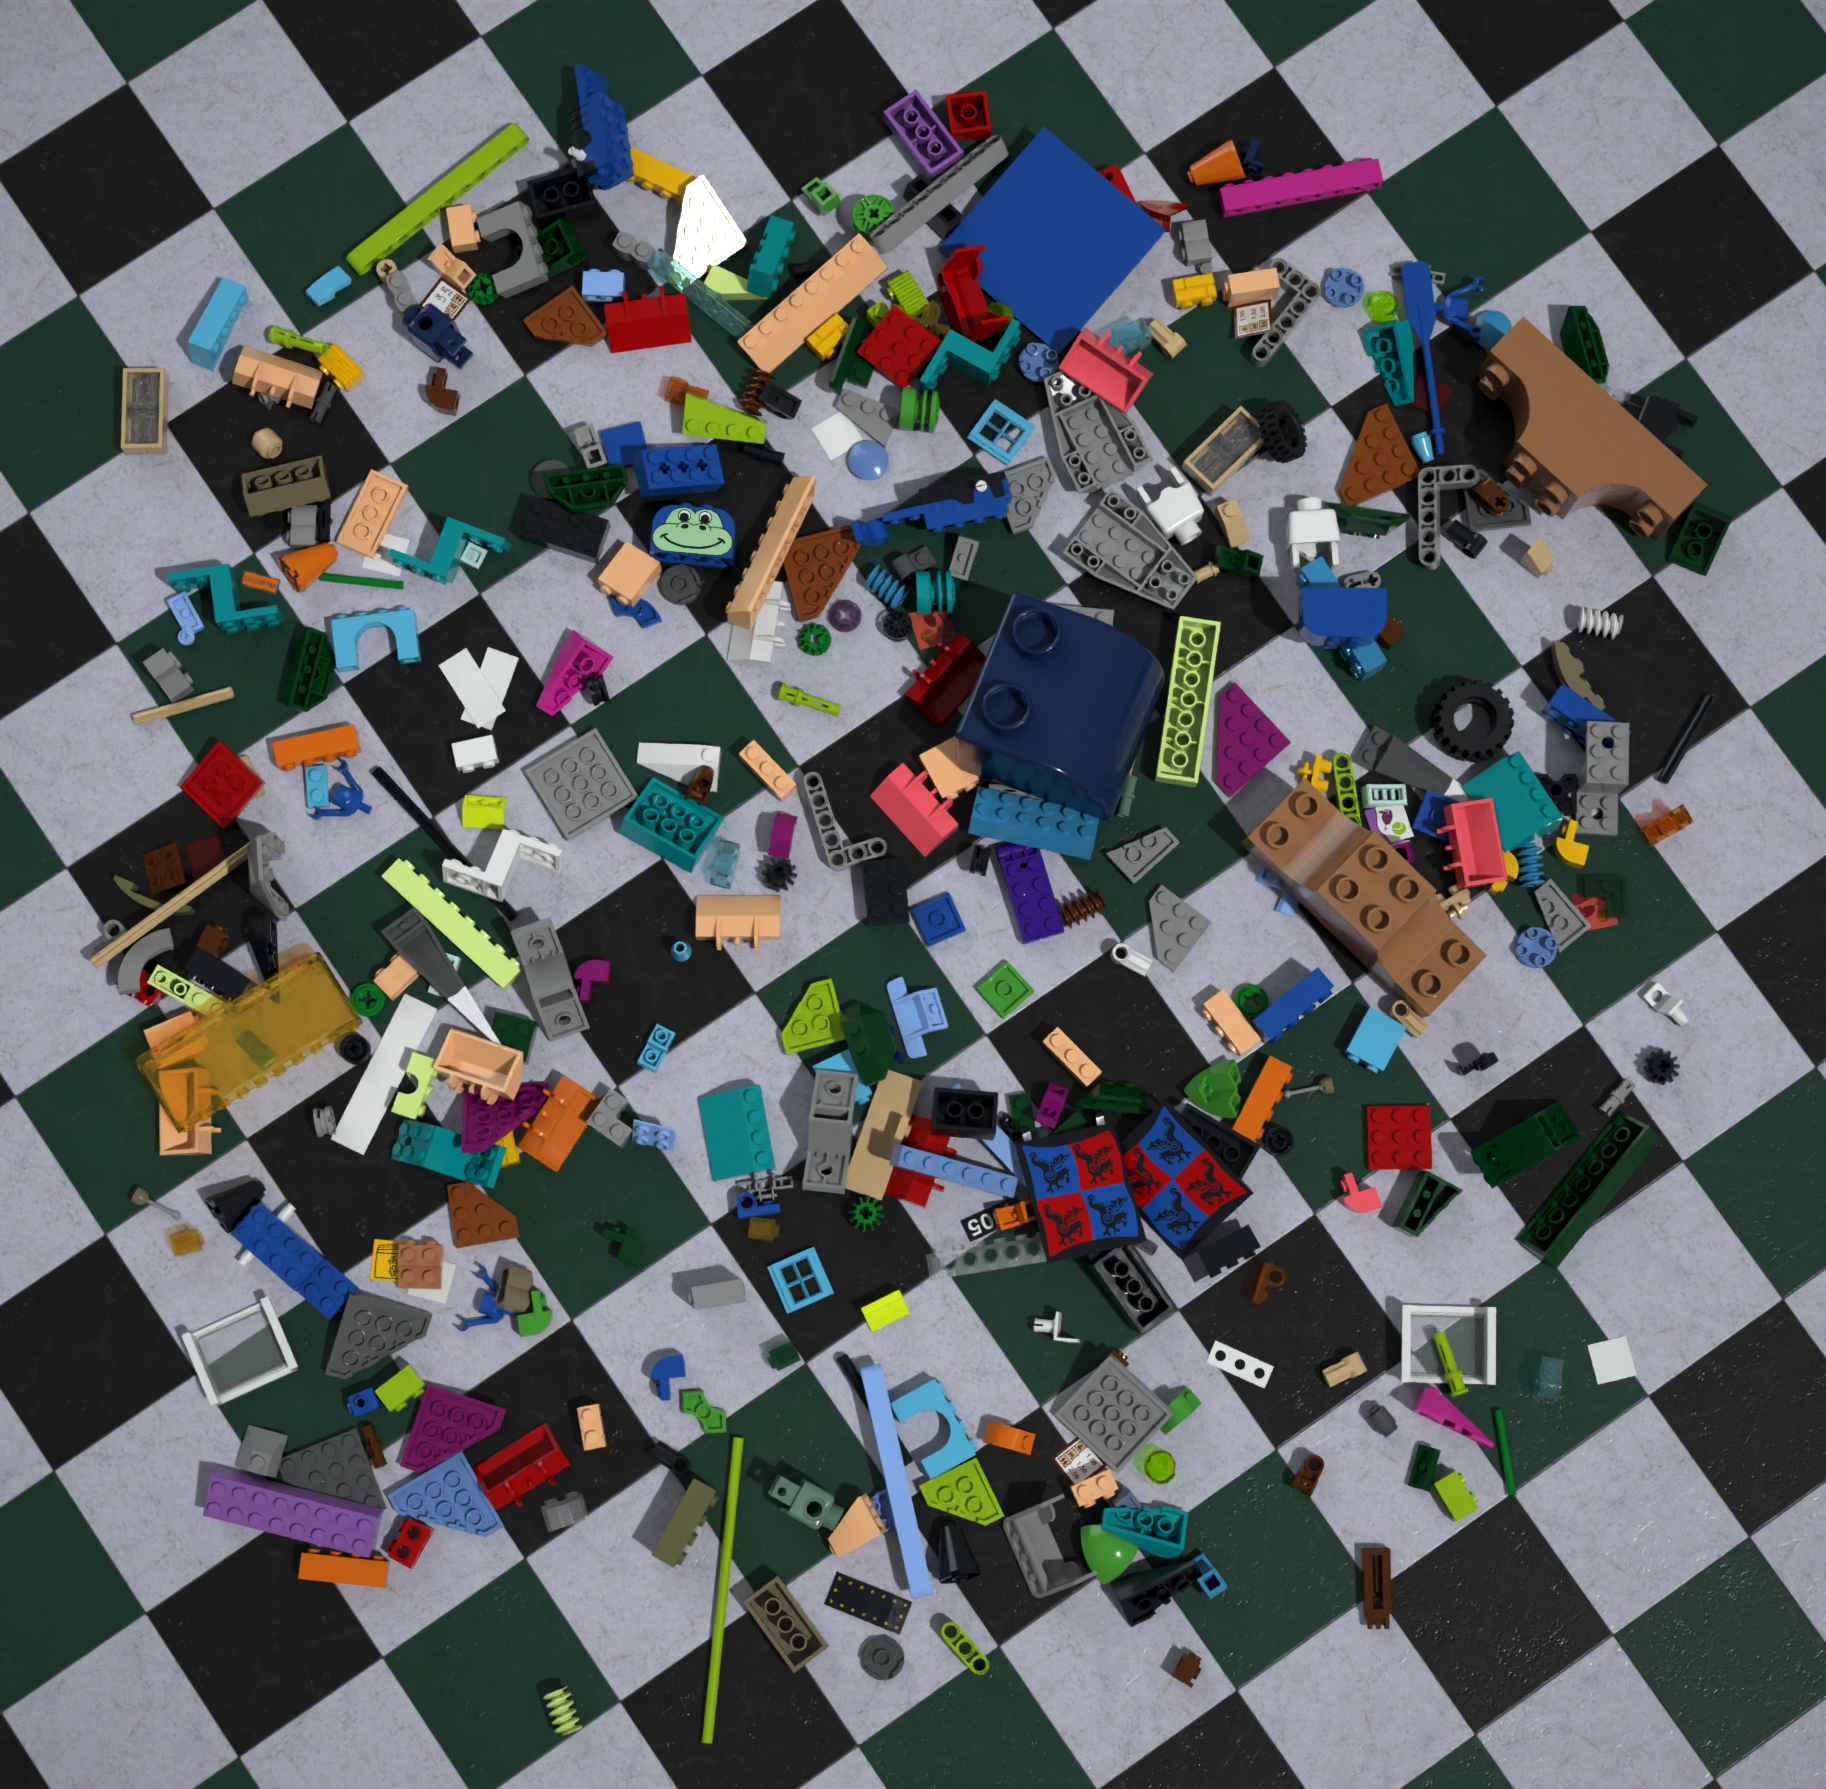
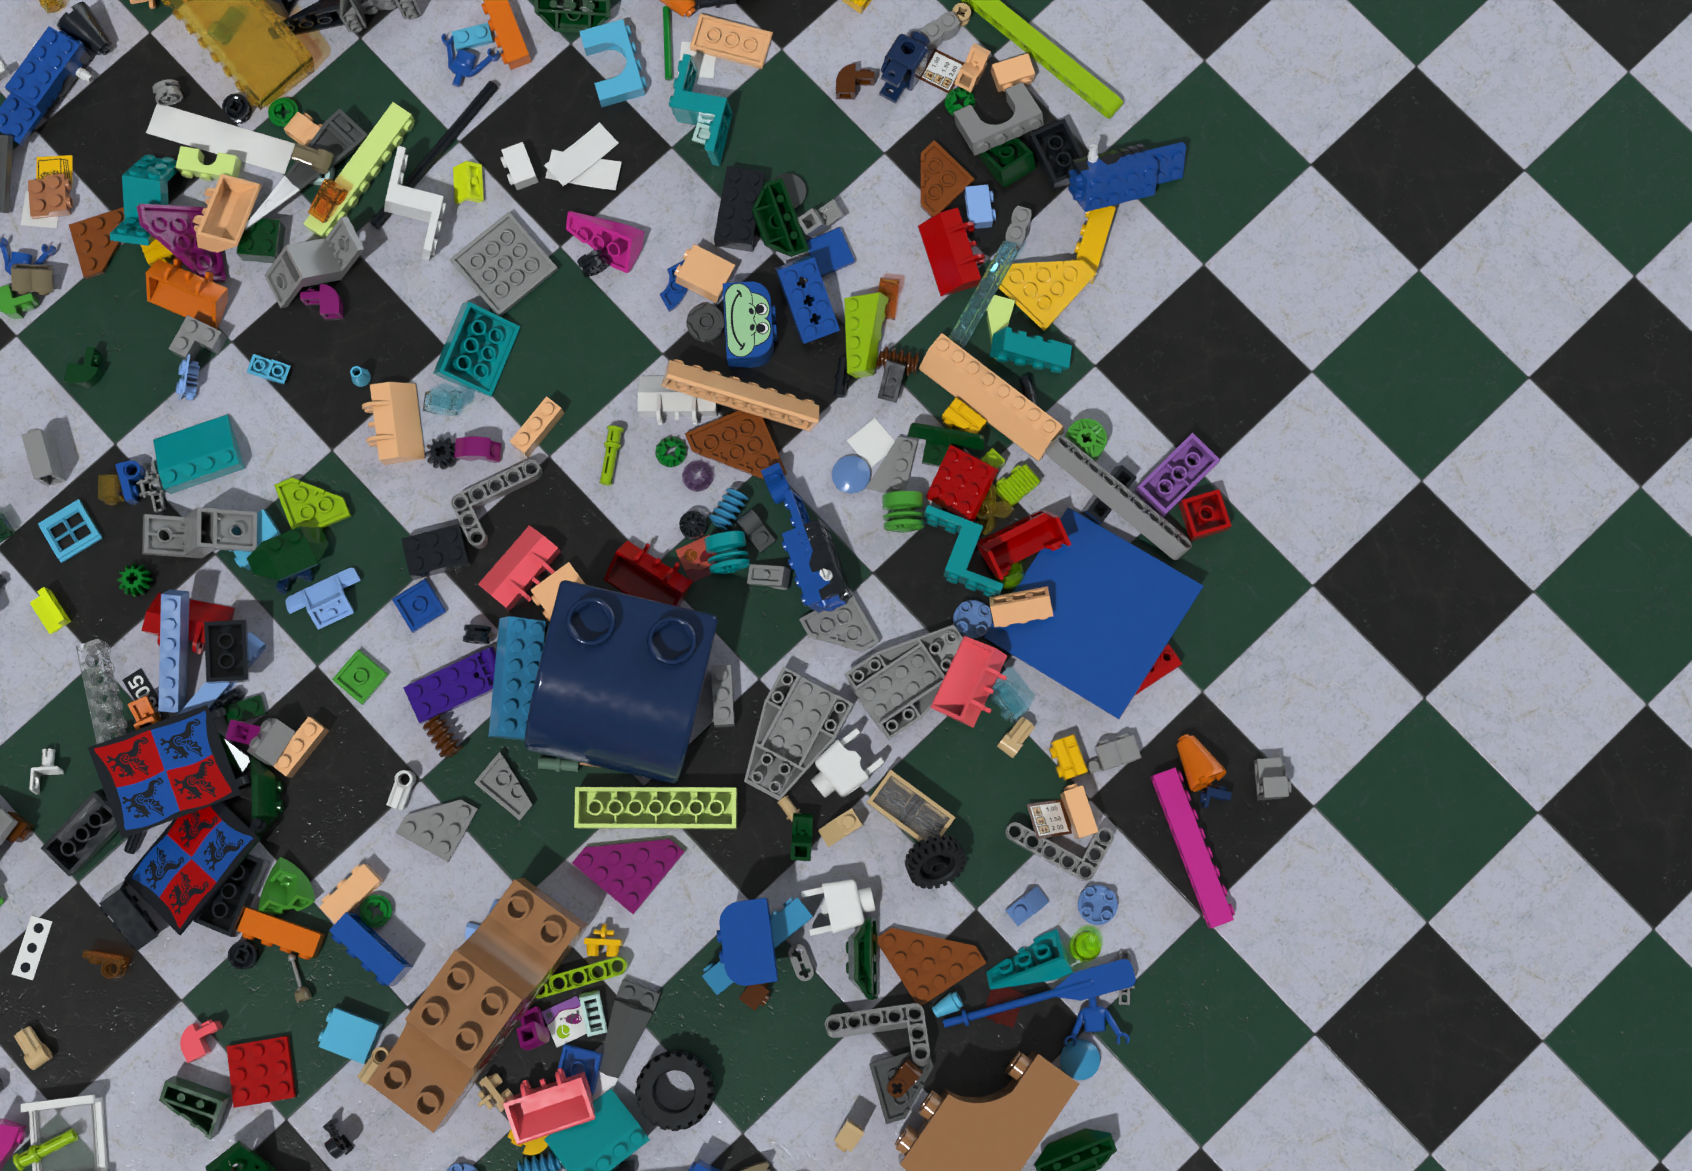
camera: 85 degrees right, 0 degrees up
(436, 959) = (318, 159): none -> dark tan piece
(484, 955) = (327, 198): none -> clear orange plate
(680, 760) = (535, 355): white wedge -> none
(700, 784) = (514, 368): reddish brown piece -> none
(821, 196) = (1100, 389): bright green brick -> none
(883, 1128) = (212, 584): tan bracket -> none
(990, 446) = (914, 601): medium azure piece -> none
(1036, 308) = (1021, 607): none -> light nougat brick
(1064, 1081) = (270, 741): none -> light grey brick
(1163, 210) = (1145, 716): shield -> none
(1246, 101) = (1270, 779): none -> light grey brick
(1335, 356) = (1027, 906): none -> medium blue slope
(1470, 542) = (858, 1064): black piece -> none

